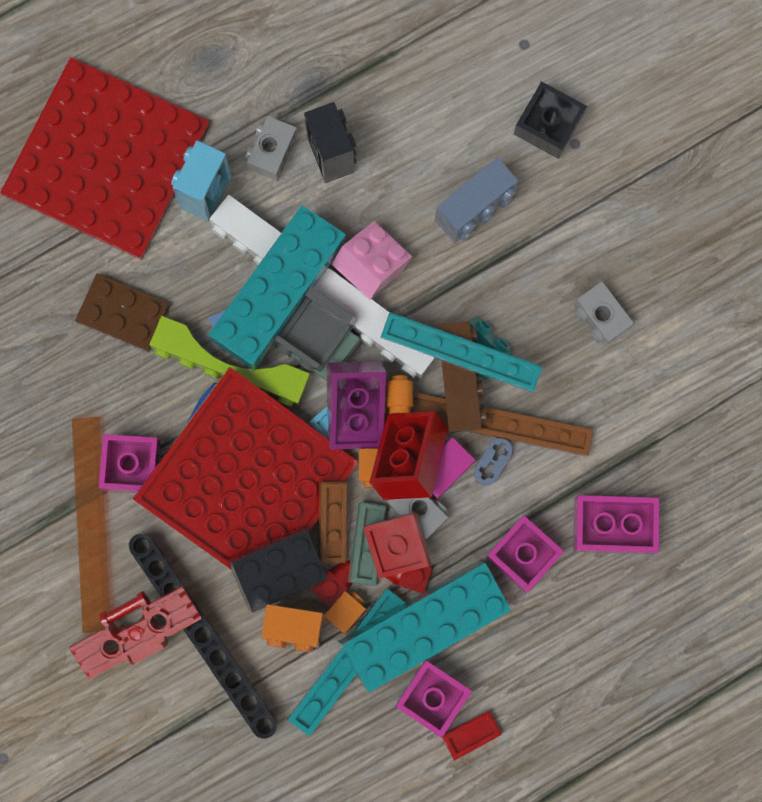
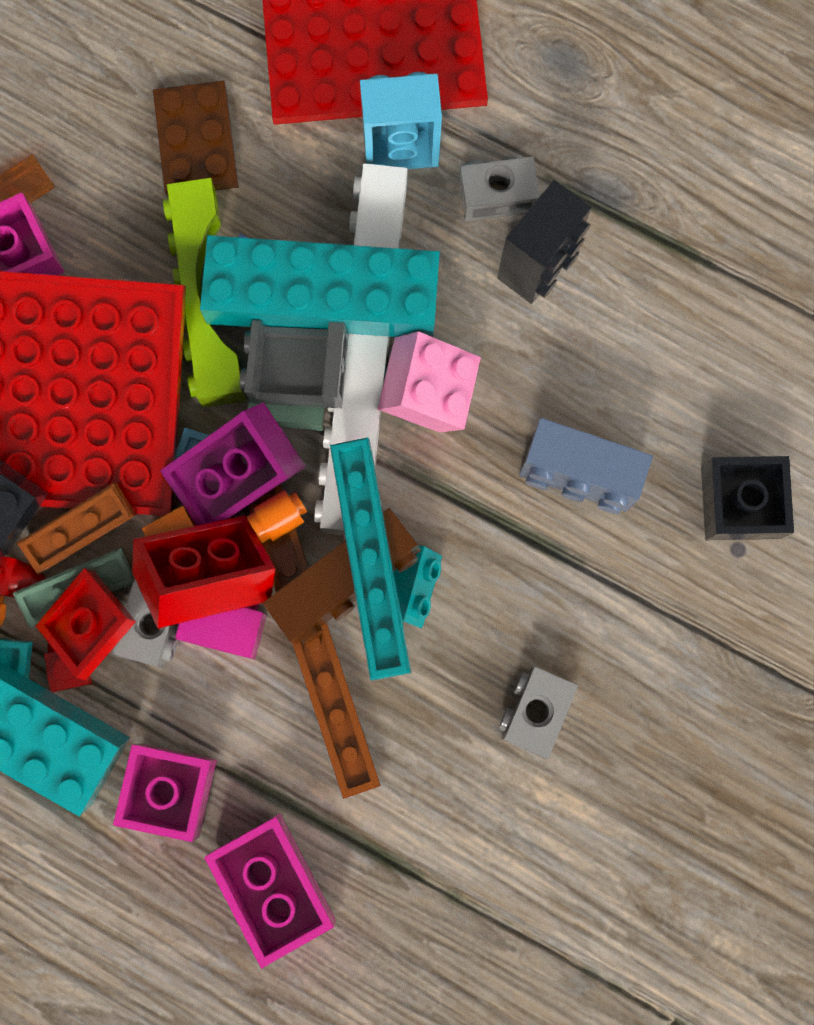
camera: 60 degrees right, 0 degrees up
(498, 465) = (267, 692): sand blue beam -> none

